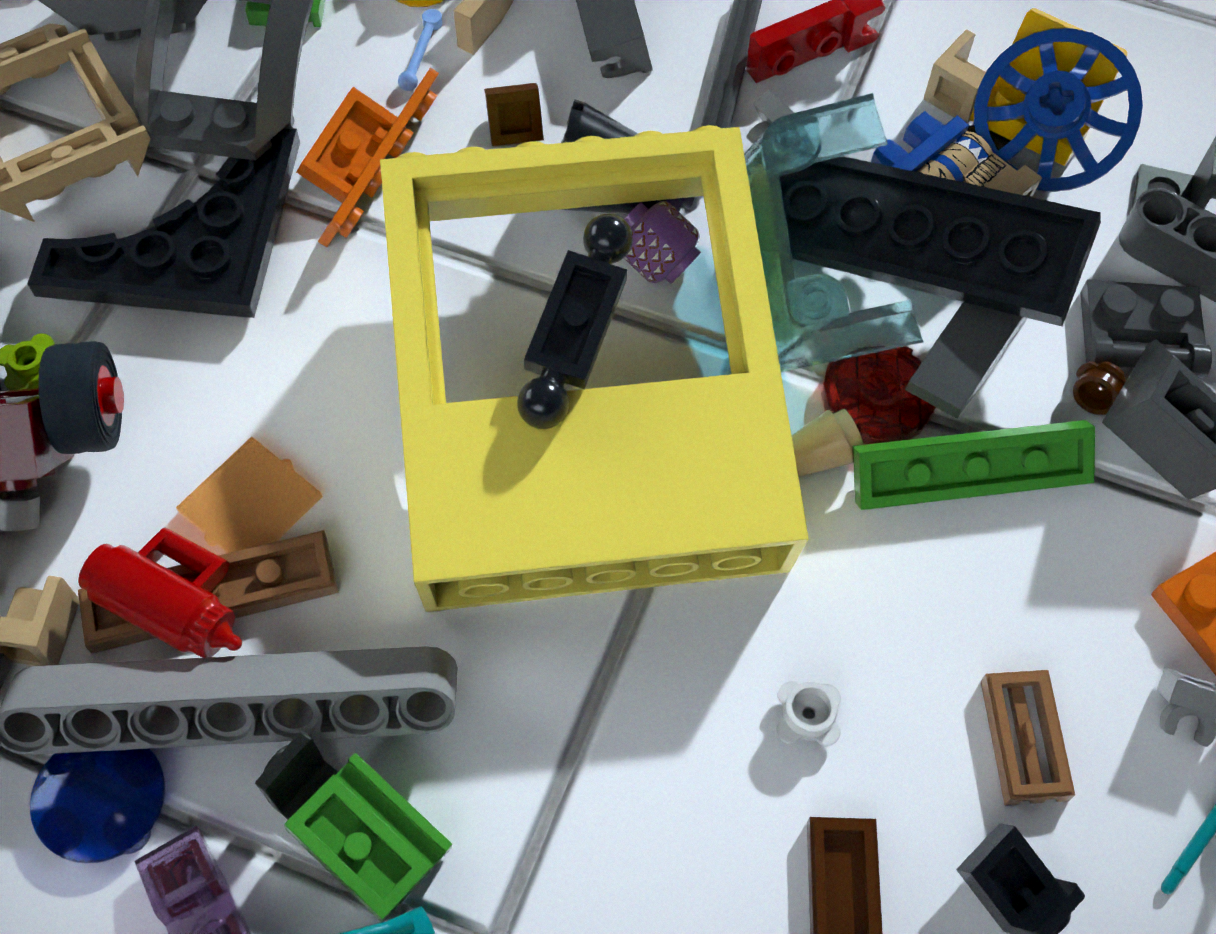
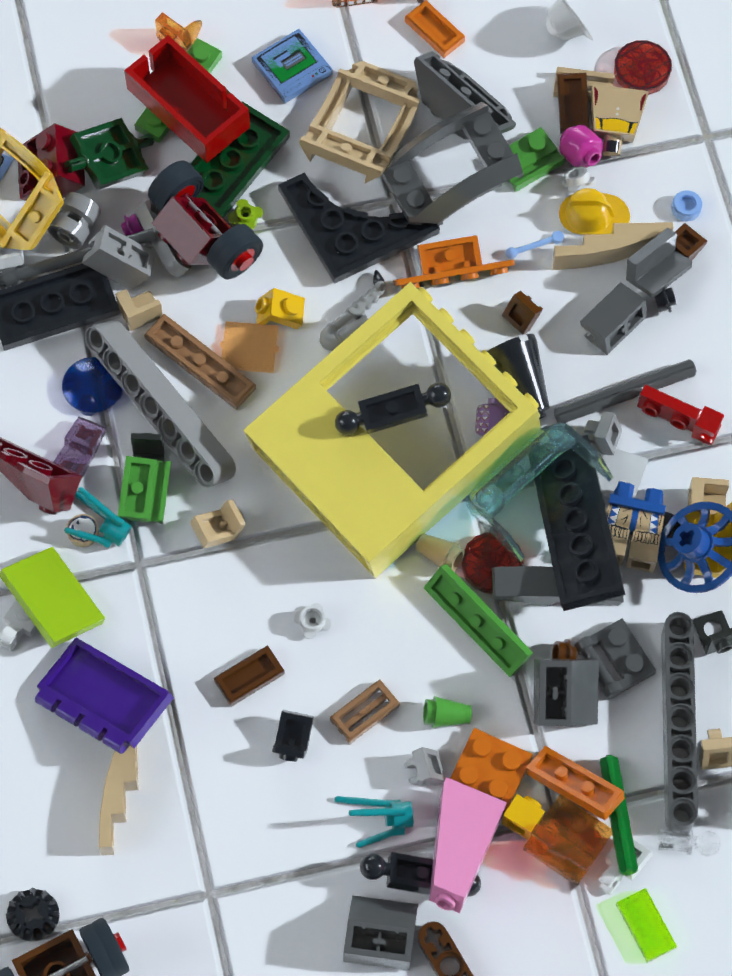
camera: 55 degrees right, 5 degrees up
(160, 600) = (178, 347): red piece -> none
(226, 411) = (280, 308): none -> yellow bracket
(341, 348) = (347, 323): none -> light grey piece
(531, 750) = (219, 525): none -> tan bracket
(1108, 612) = (443, 713): none -> bright green cone

